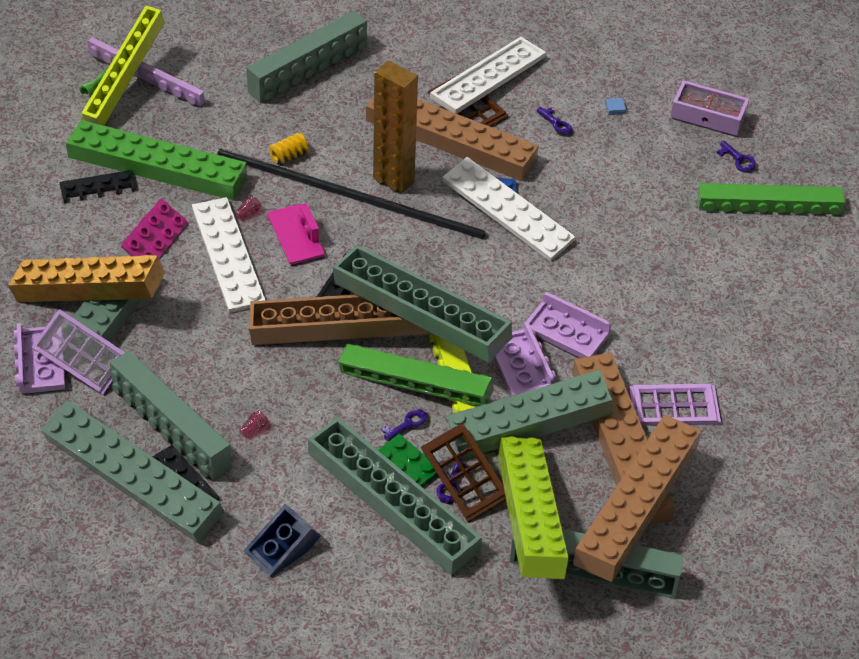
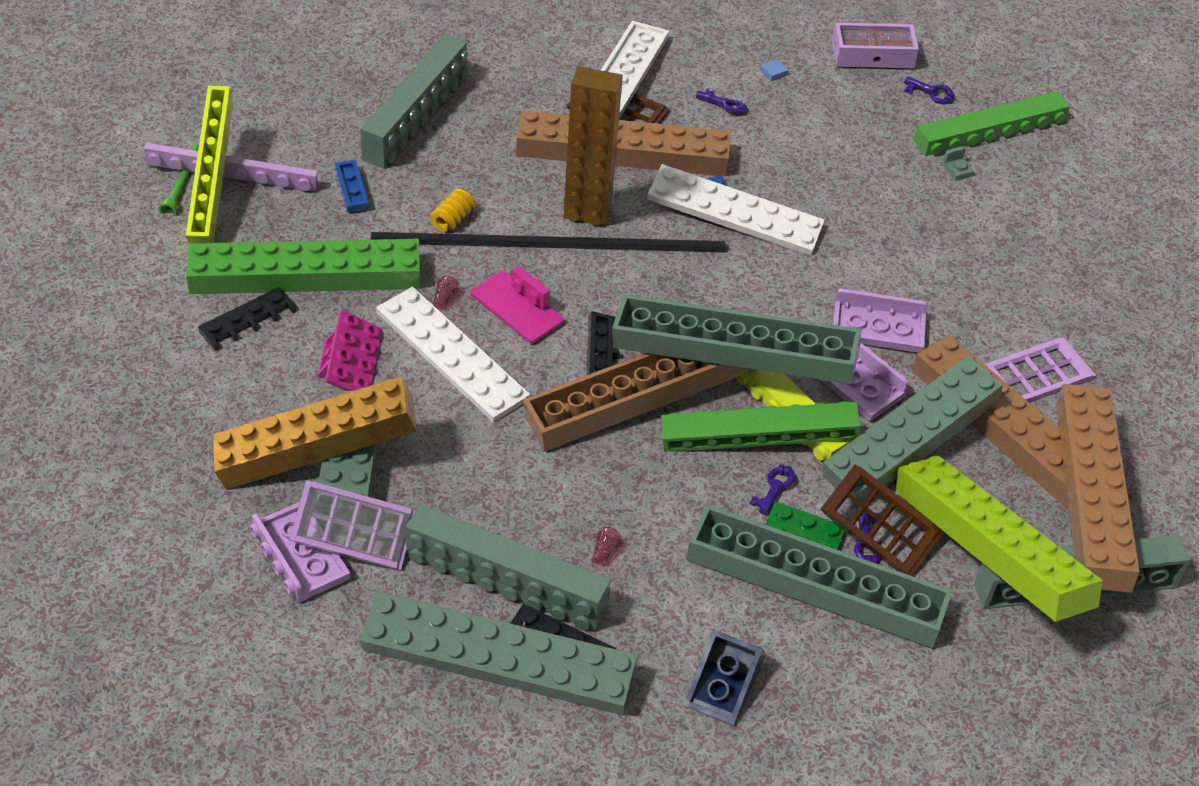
camera: 25 degrees left, 0 degrees up
(226, 109) = (351, 186): none -> blue plate
(718, 223) = (956, 164): none -> sand green bracket

